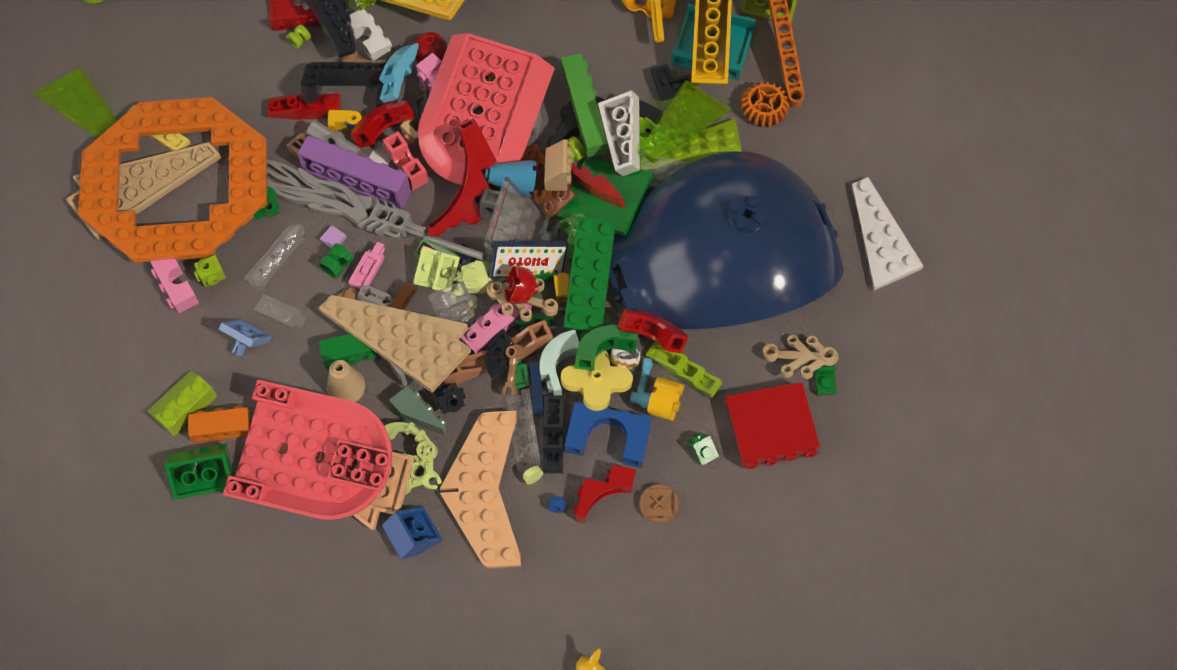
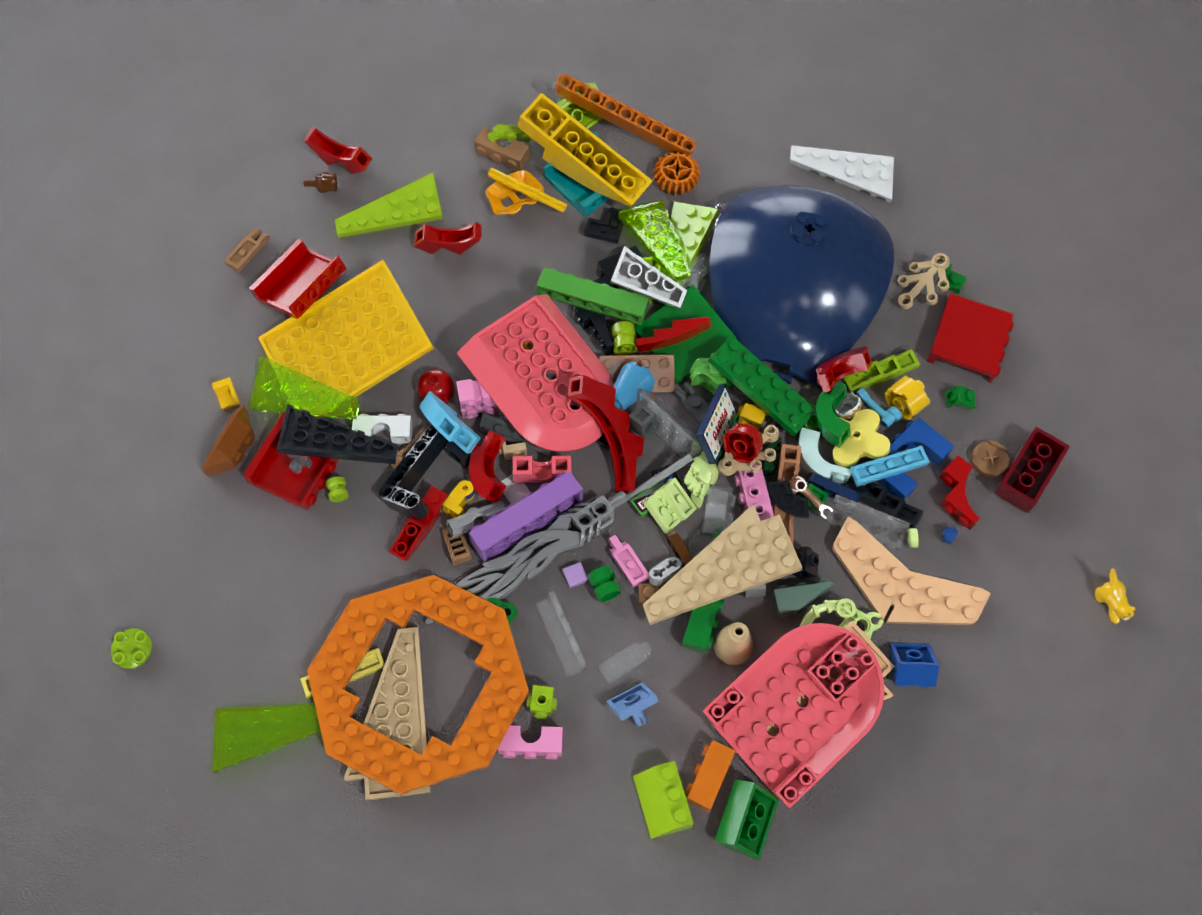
camera: 60 degrees left, 0 degrees up
(558, 167) = (646, 347): tan slope -> none
(584, 416) = (889, 465): none -> medium azure tile
(666, 540) = (1032, 469): none -> dark red brick

